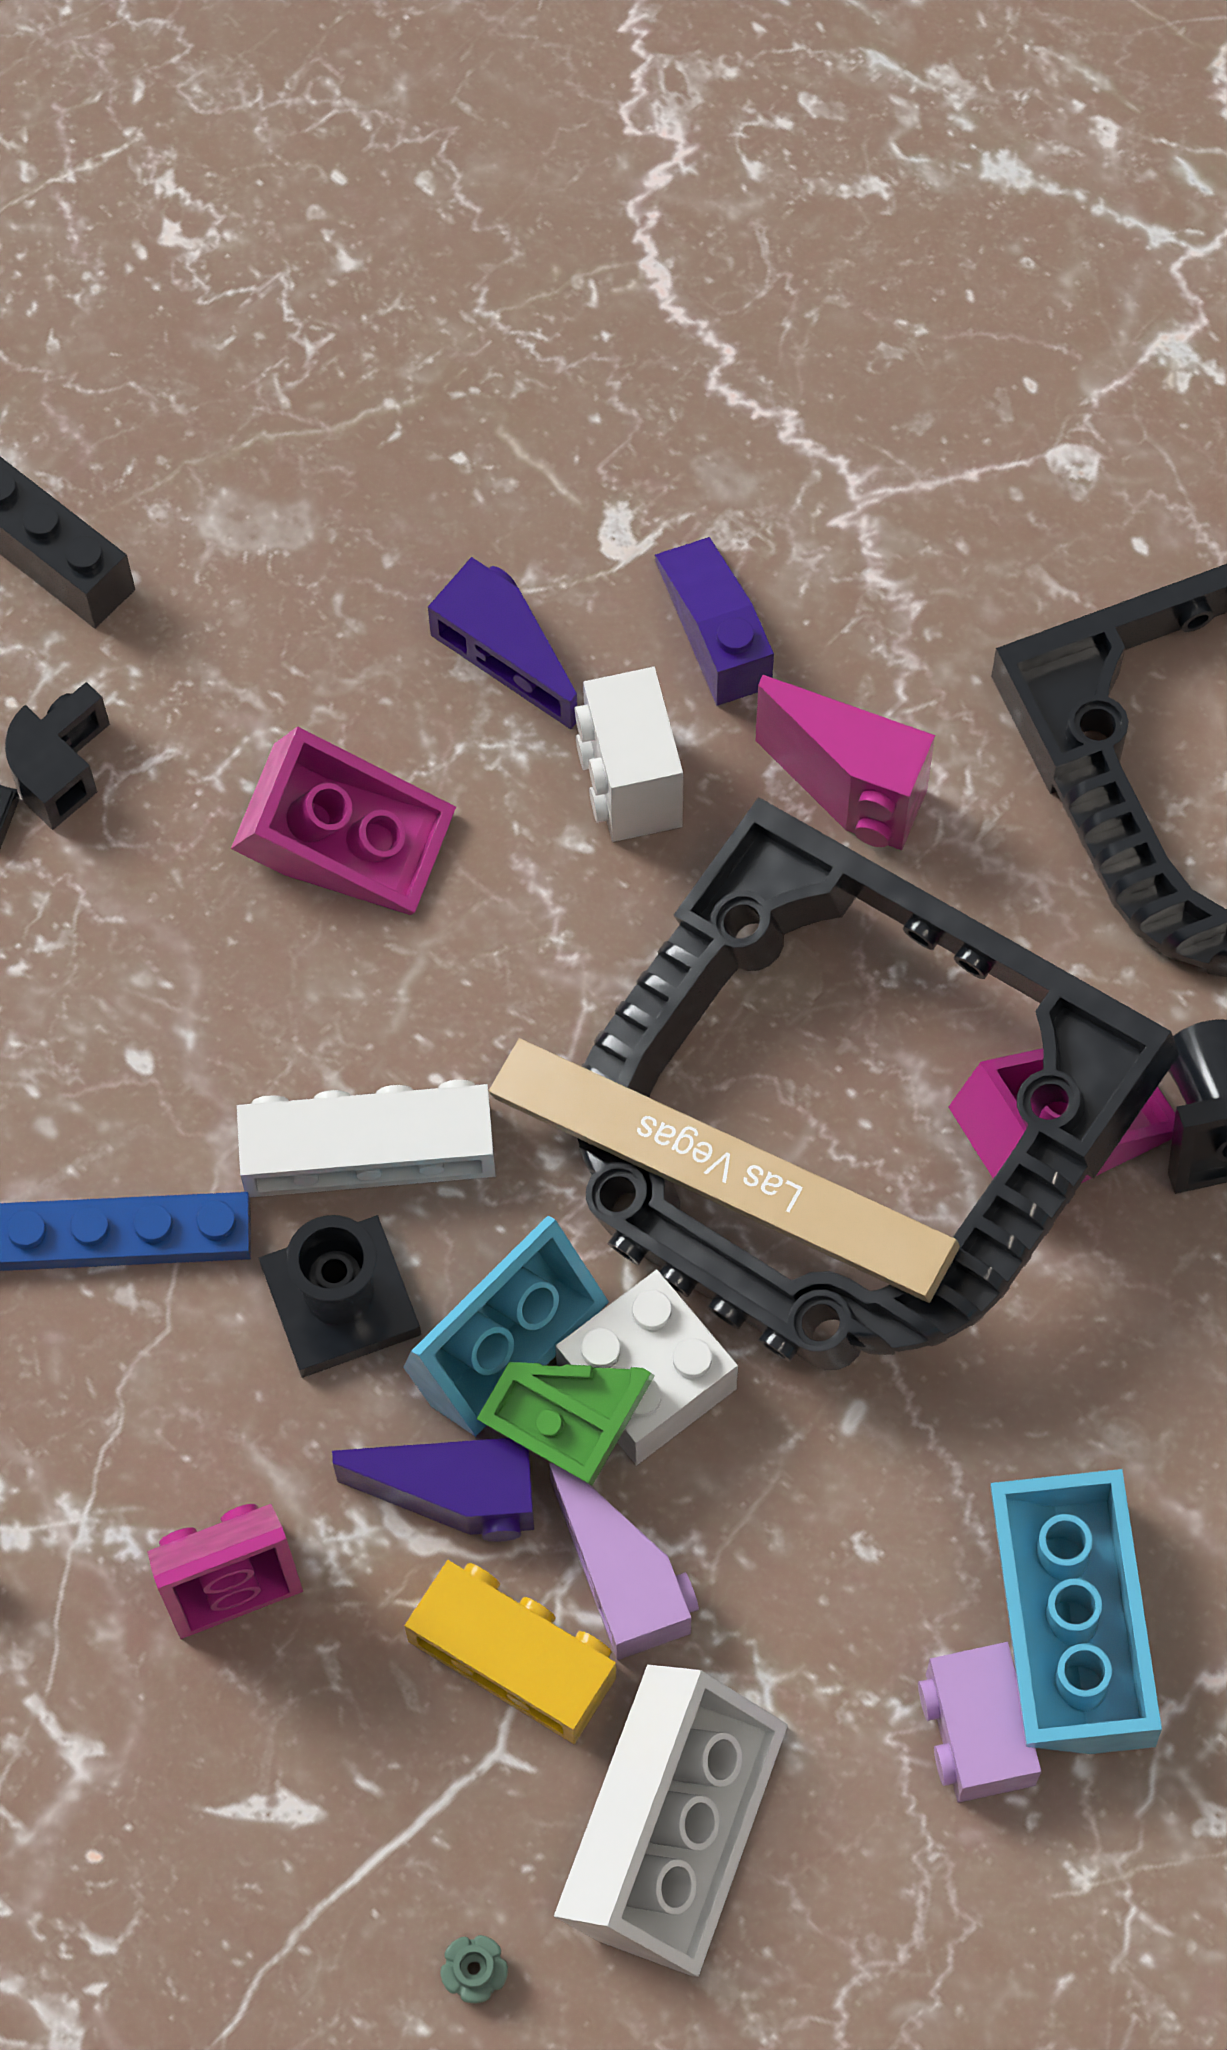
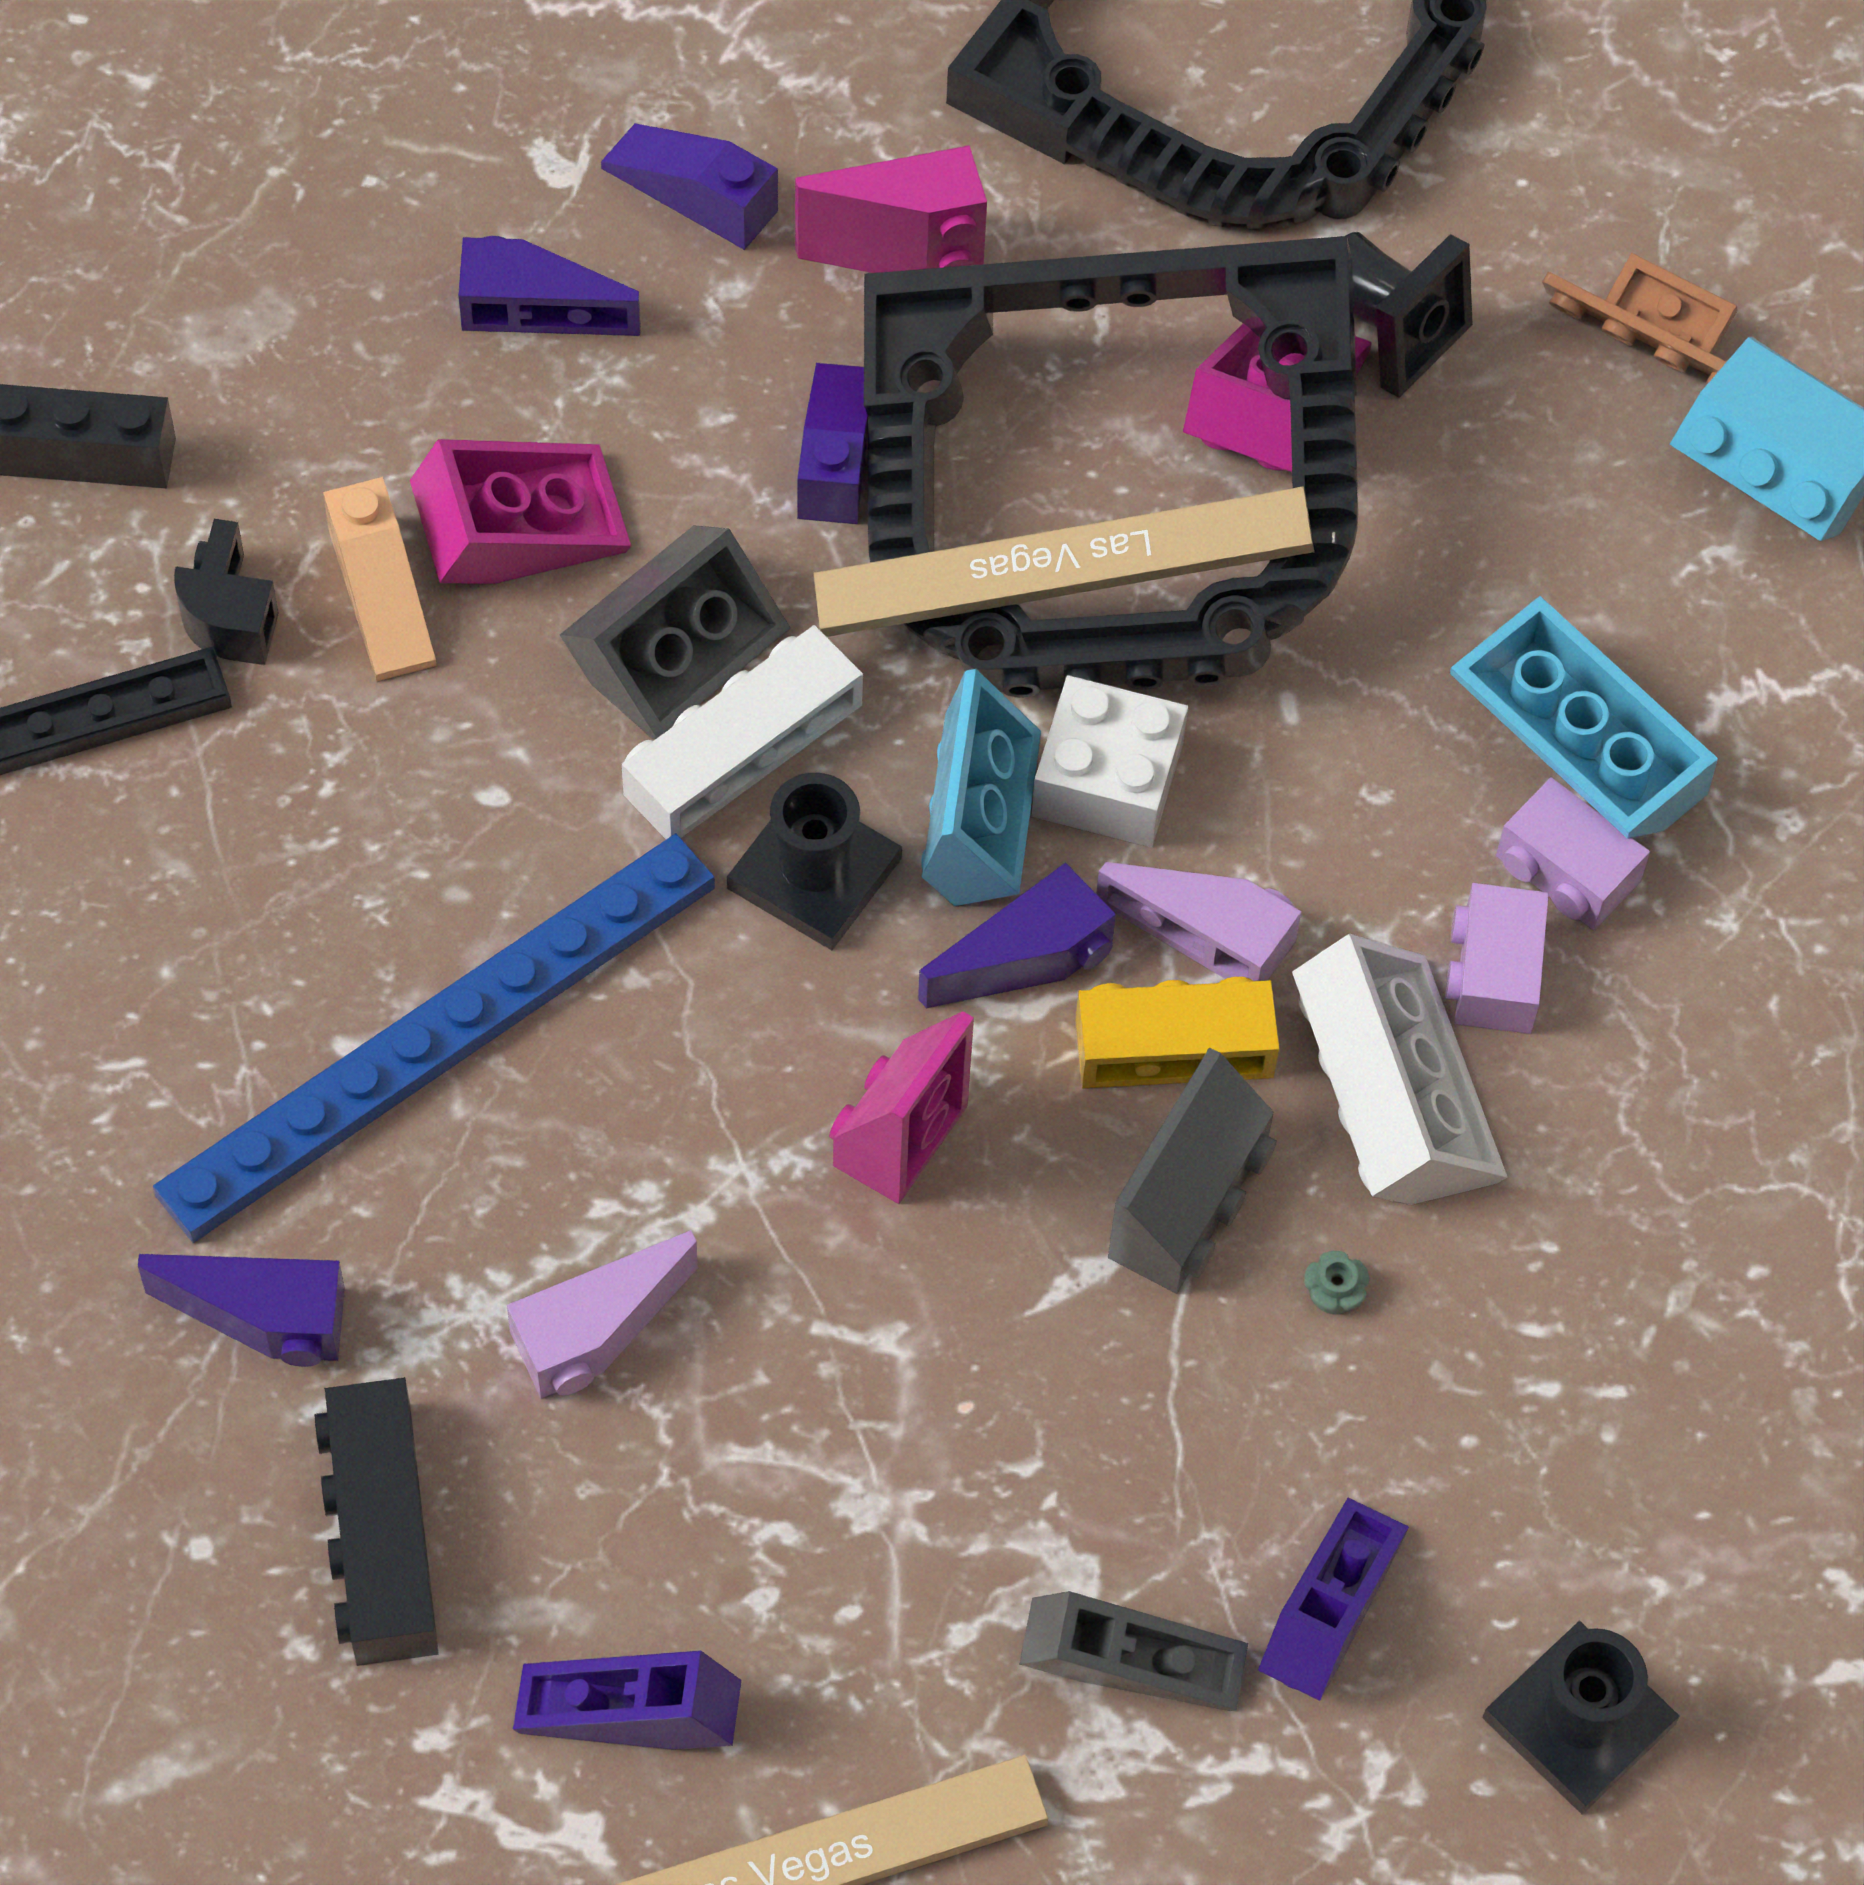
camera: 40 degrees left, 5 degrees down
(186, 813) = (379, 578): none -> light nougat slope
(385, 1013) = (676, 629): none -> dark grey slope
(415, 1790) = (1192, 1176): none -> dark grey slope
(566, 1411) = (1087, 819): bright green wing -> none
(630, 755) = (723, 311): white brick -> none
(634, 927) = (833, 446): none -> dark purple slope
(841, 1773) = (1500, 958): none -> lavender brick

